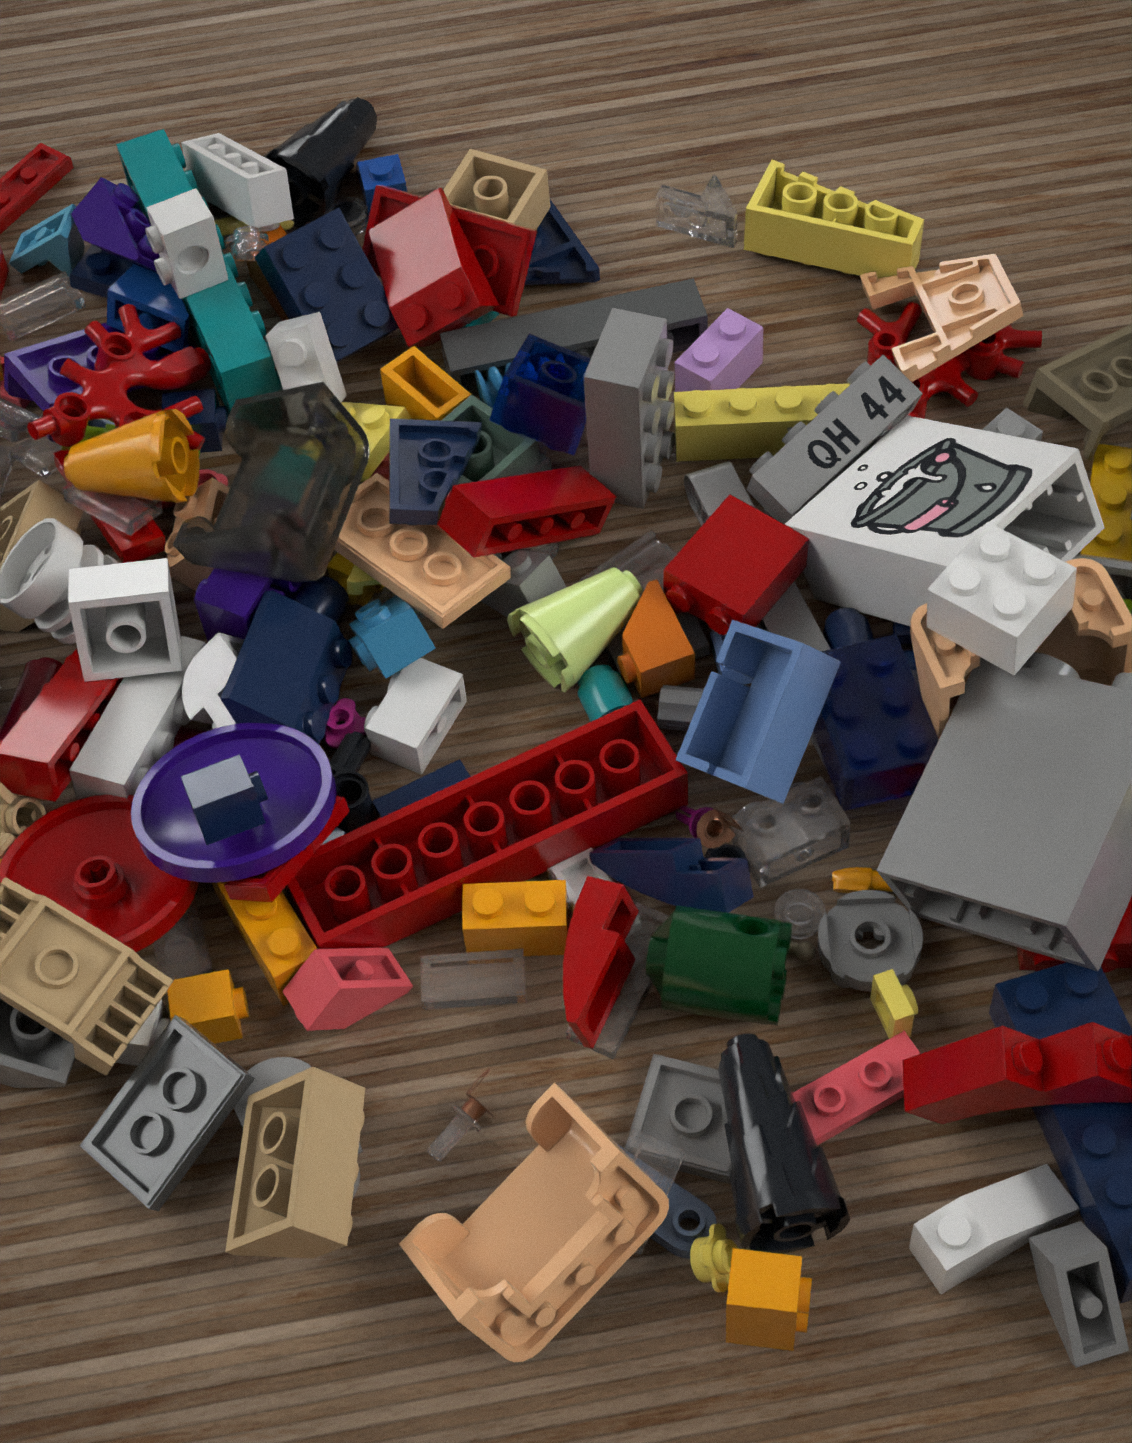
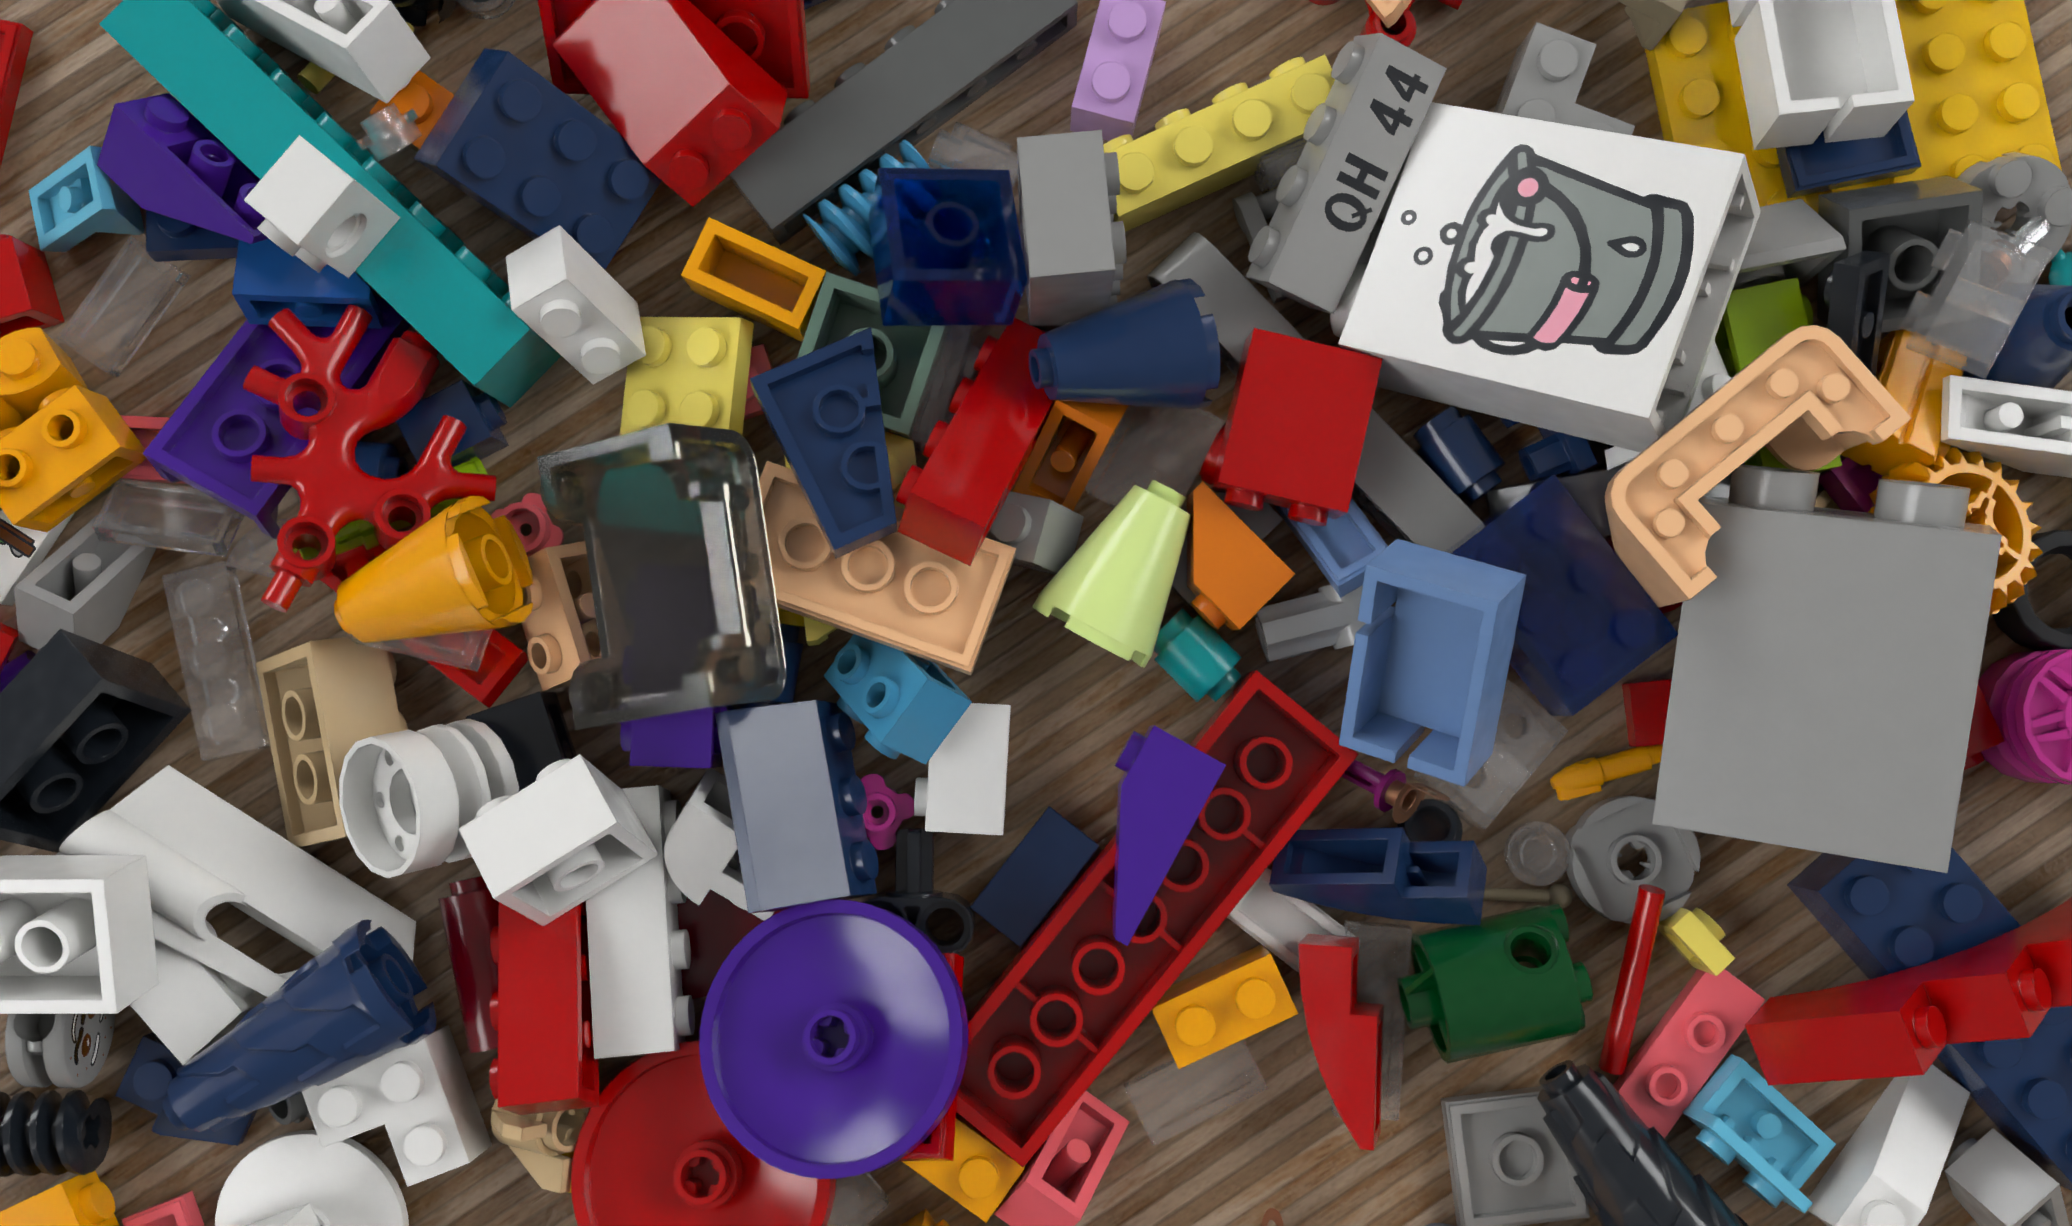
camera: 30 degrees left, 30 degrees up
(225, 799) = (840, 1078): dark blue brick -> none
(526, 742) = (1156, 809): none -> dark purple slope
(590, 539) = (1069, 450): none -> orange slope
(642, 491) = (1134, 352): none -> dark blue cone
(832, 1014) = (1631, 979): none -> red bar
(890, 1159) = (1760, 1131): none -> medium azure bracket
(1000, 597) = (1741, 453): white brick -> none

